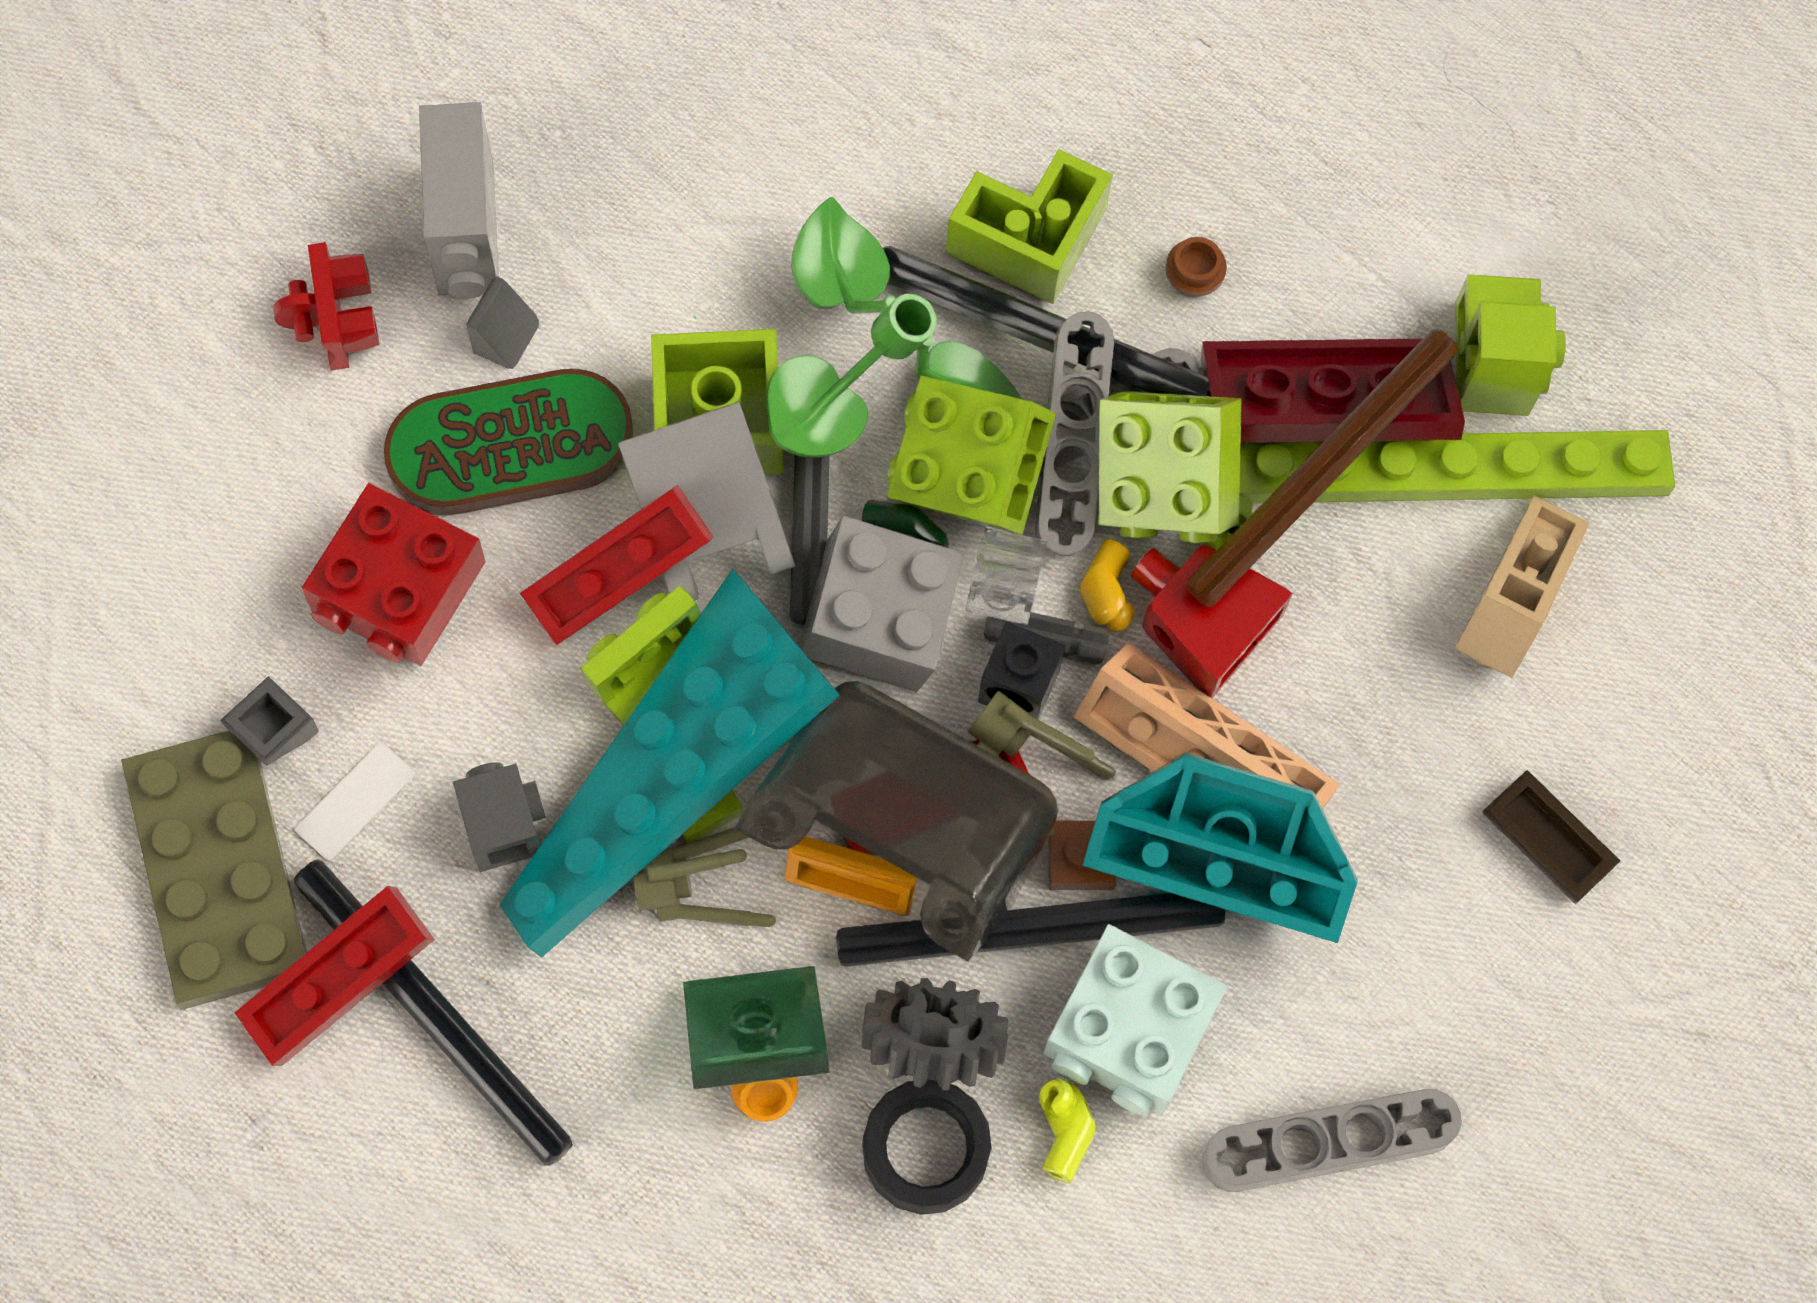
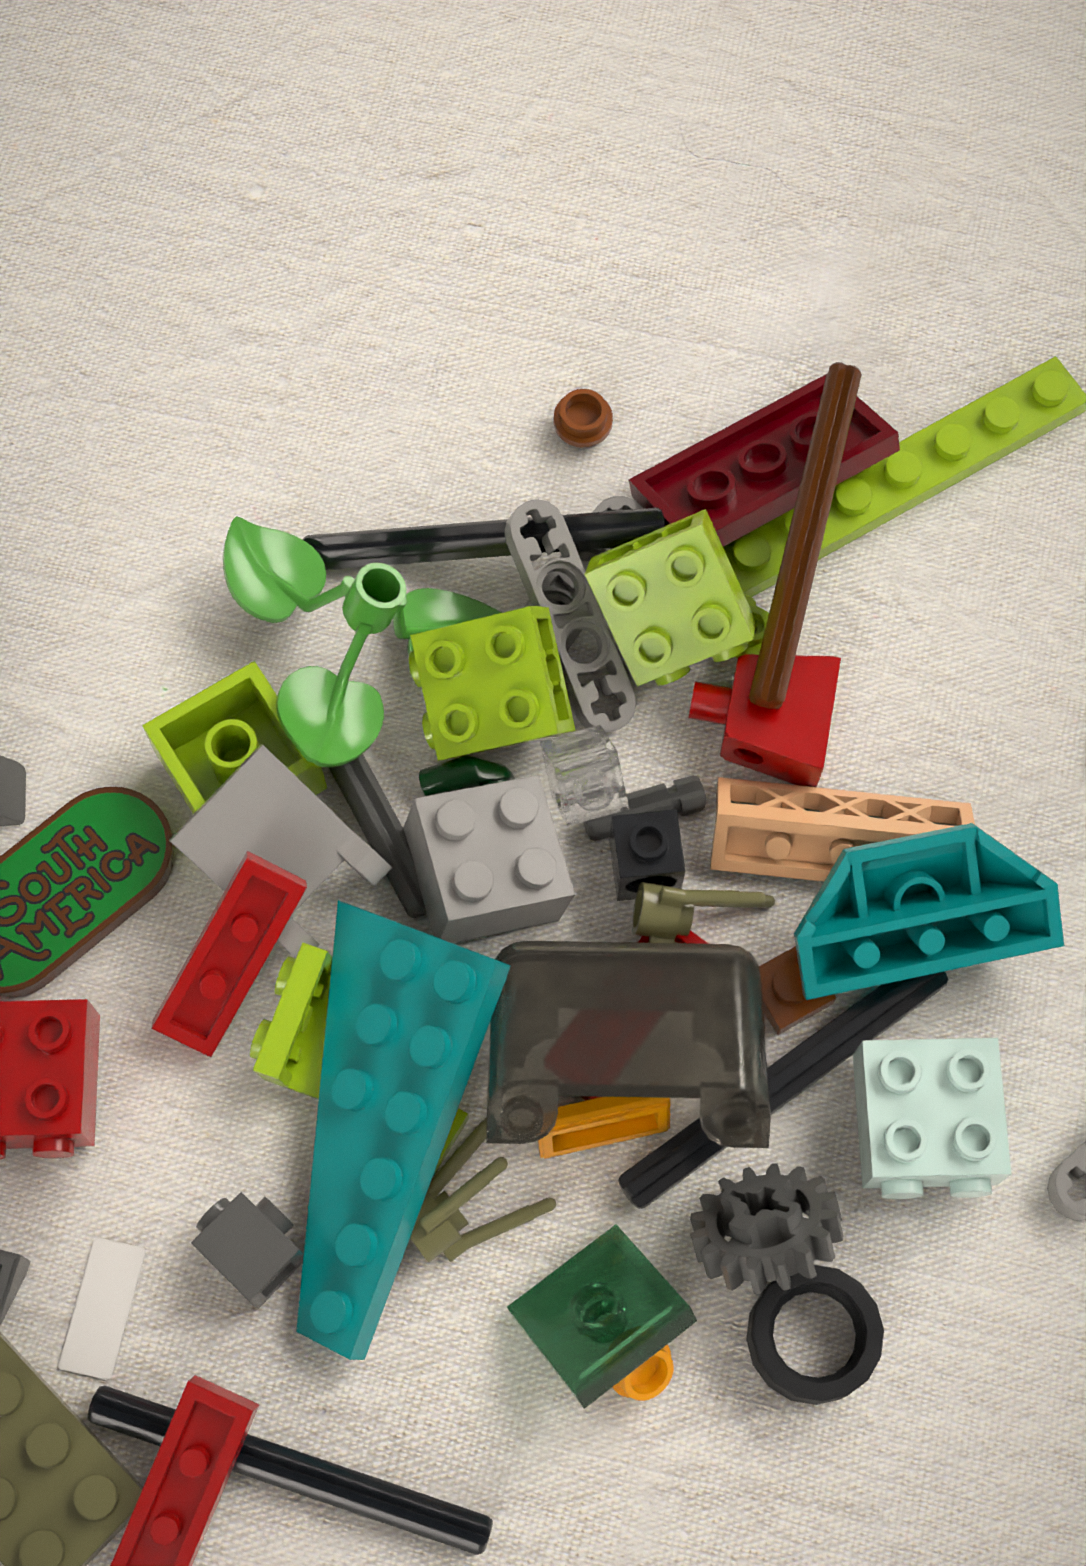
camera: 25 degrees left, 0 degrees up
(1034, 237) = (423, 466): lime brick -> none
(1071, 1125) = (925, 1239): neon yellow arm -> none
(1102, 591) = (668, 742): yellow arm -> none
(1504, 344) = (892, 343): lime brick -> none
(1522, 587) = (1022, 552): tan slope -> none

